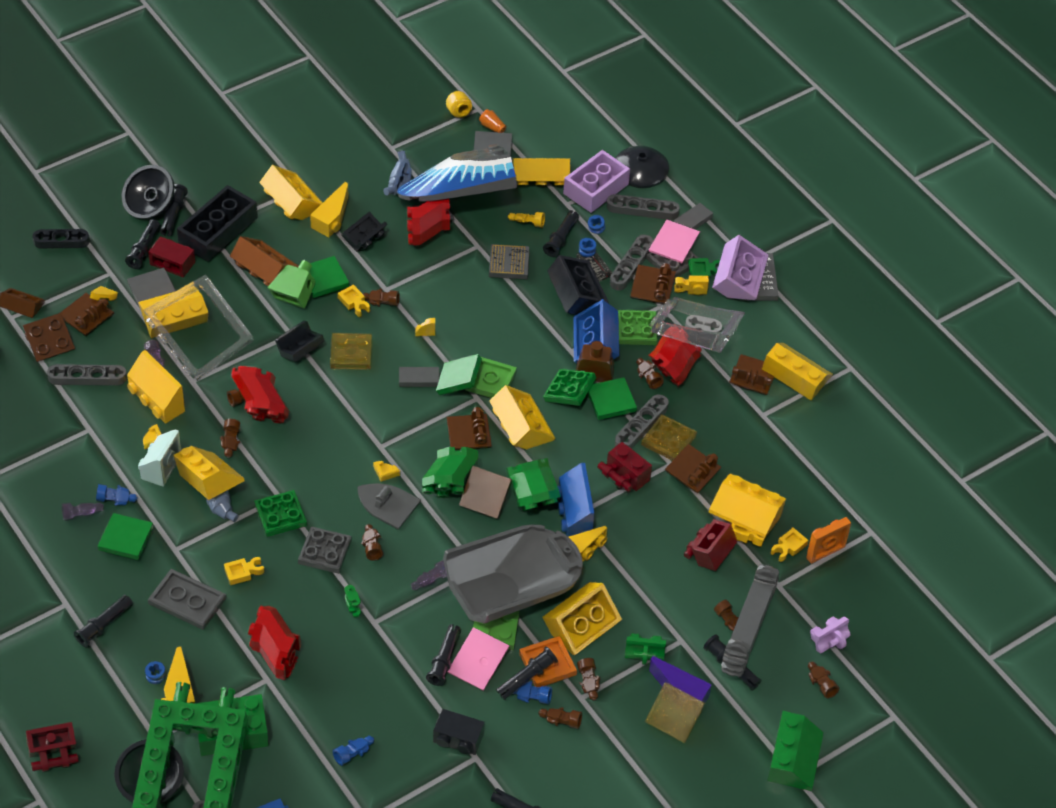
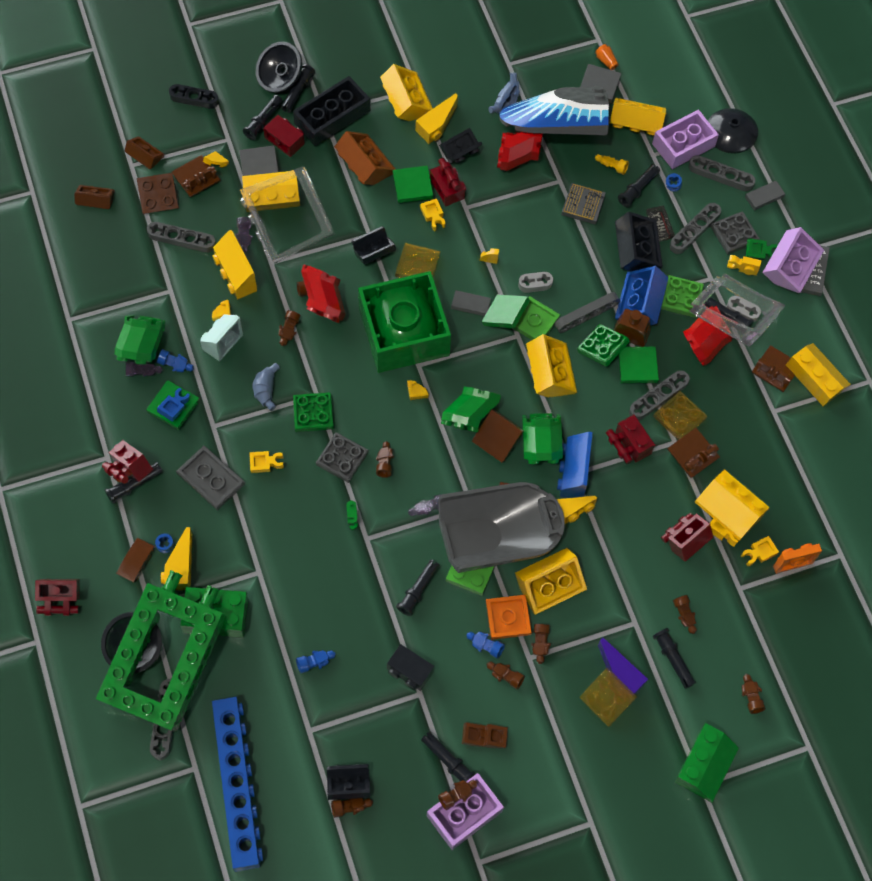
camera: 15 degrees right, 15 degrees up
(71, 478) = (139, 339): none -> green brick
(94, 598) = (129, 461): none -> dark red brick
(128, 534) = (171, 406): none -> blue plate
(128, 694) = (135, 559): none -> reddish brown slope
(206, 471) = (258, 359): yellow slope -> none
(274, 641) = (271, 541): red brick -> none
(293, 284) = (383, 188): bright green torso -> none
(355, 404) = (404, 321): none -> green piece
(360, 268) = (447, 183): none -> dark red brick
(377, 297) = (455, 214): reddish brown piece -> none
(387, 503) = (410, 423): dark grey shield -> none
(459, 104) = (581, 32): yellow head -> none
(469, 430) = (501, 368): reddish brown hinge -> none
(478, 659) = (447, 599): bright pink piece -> none
(481, 343) = (535, 282): none -> light grey beam
(535, 667) = (494, 623): black pin -> none
(543, 360) = (587, 312): none -> dark grey beam
(558, 781) = (484, 736): none -> reddish brown slope
(587, 242) = (658, 210): blue bush -> none
(644, 648) = (598, 626): green hips -> none
(646, 370) = (678, 342): reddish brown piece -> none
(653, 283) = (709, 255): reddish brown hinge -> none
(674, 241) = (740, 216): bright pink piece -> none
(750, 621) = (701, 624): dark grey arm -> none
(834, 634) = (774, 654): lavender hips -> none

